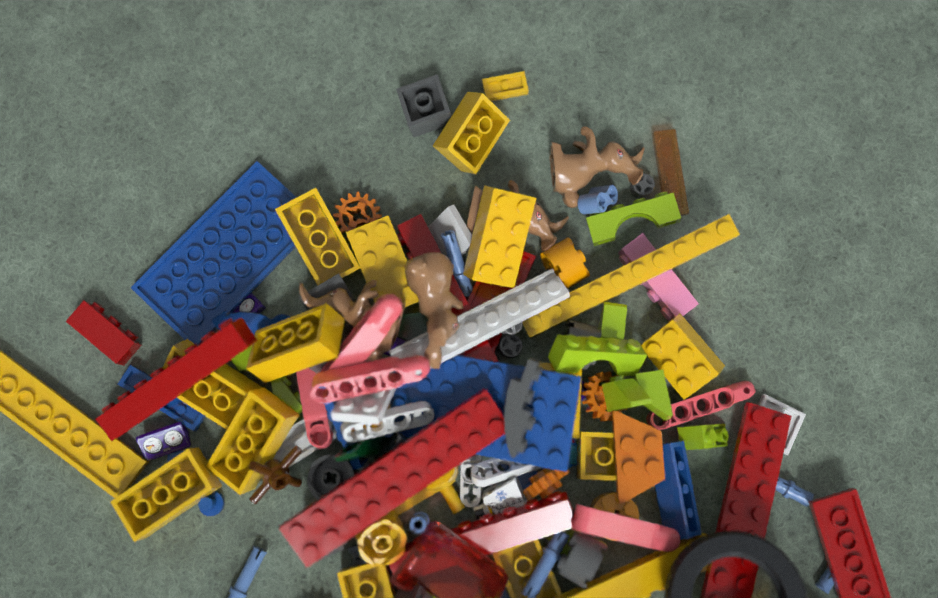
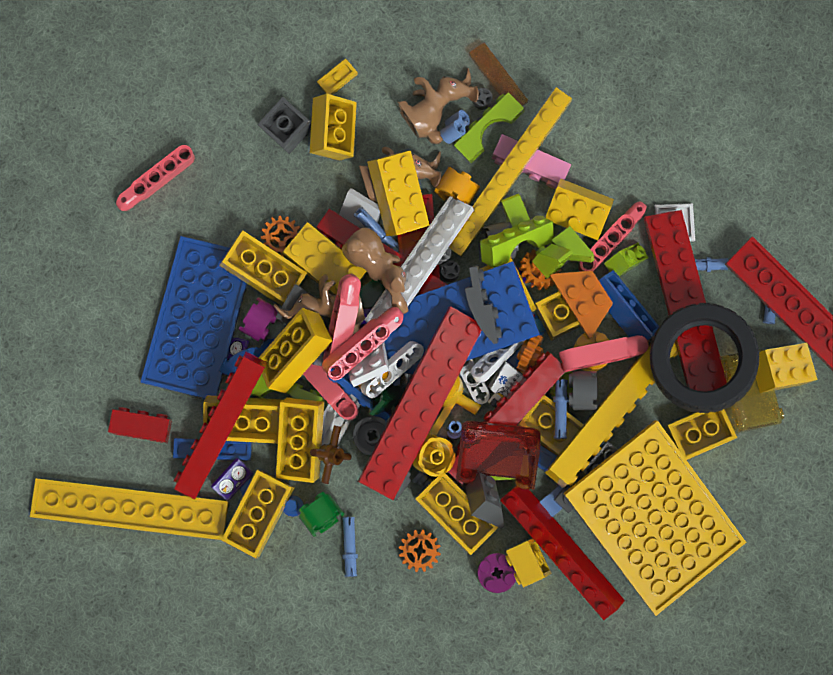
camera: 25 degrees left, 0 degrees up
(230, 531) = (320, 514): none -> green brick
(232, 92) = (130, 196): none -> coral piece
(283, 289) = (259, 319): none -> magenta brick

